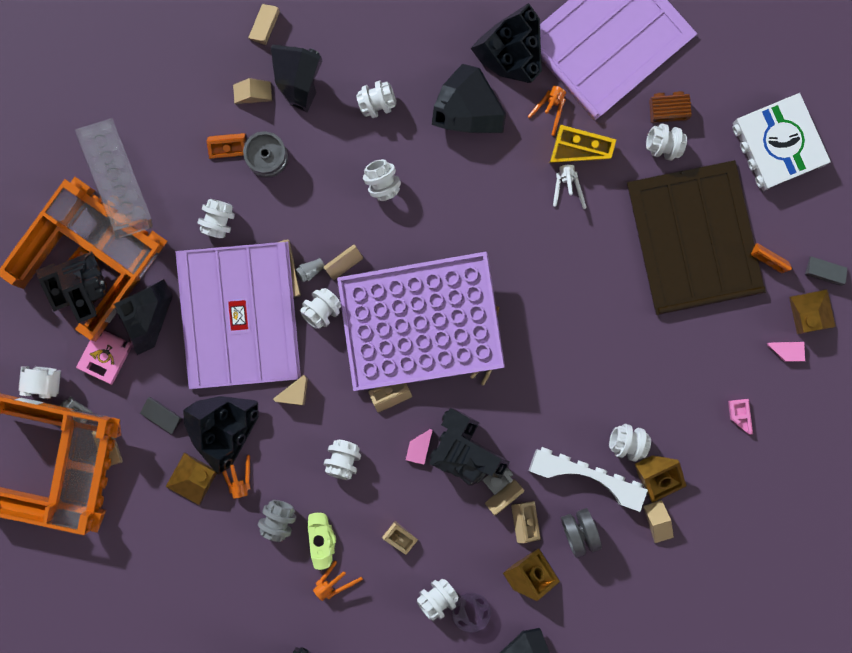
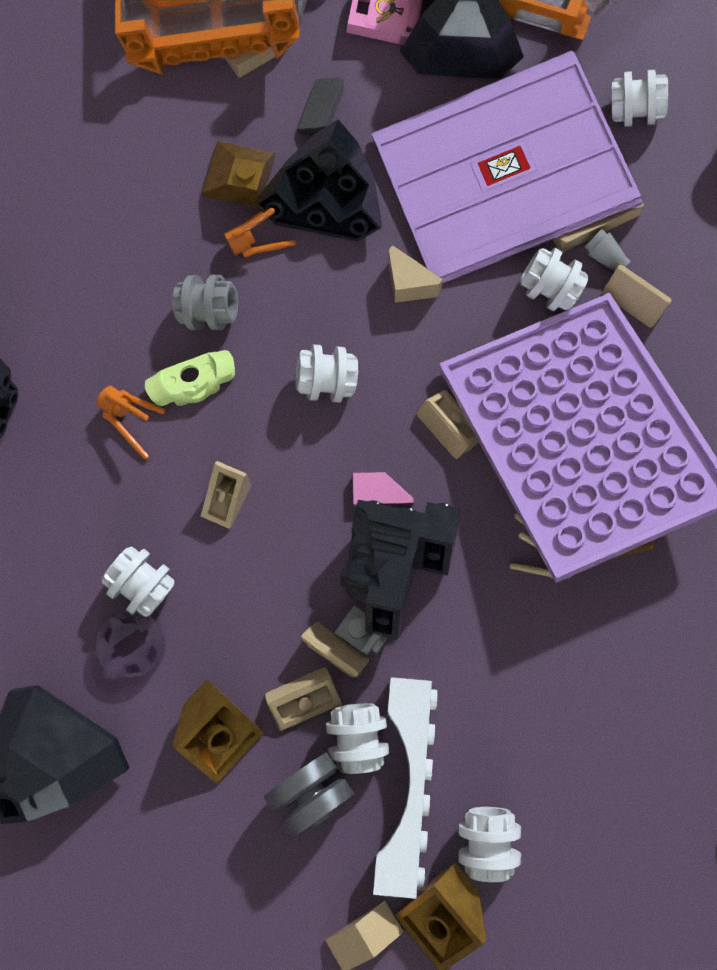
camera: 75 degrees right, 10 degrees down
(552, 498) = (357, 738): none -> white piece

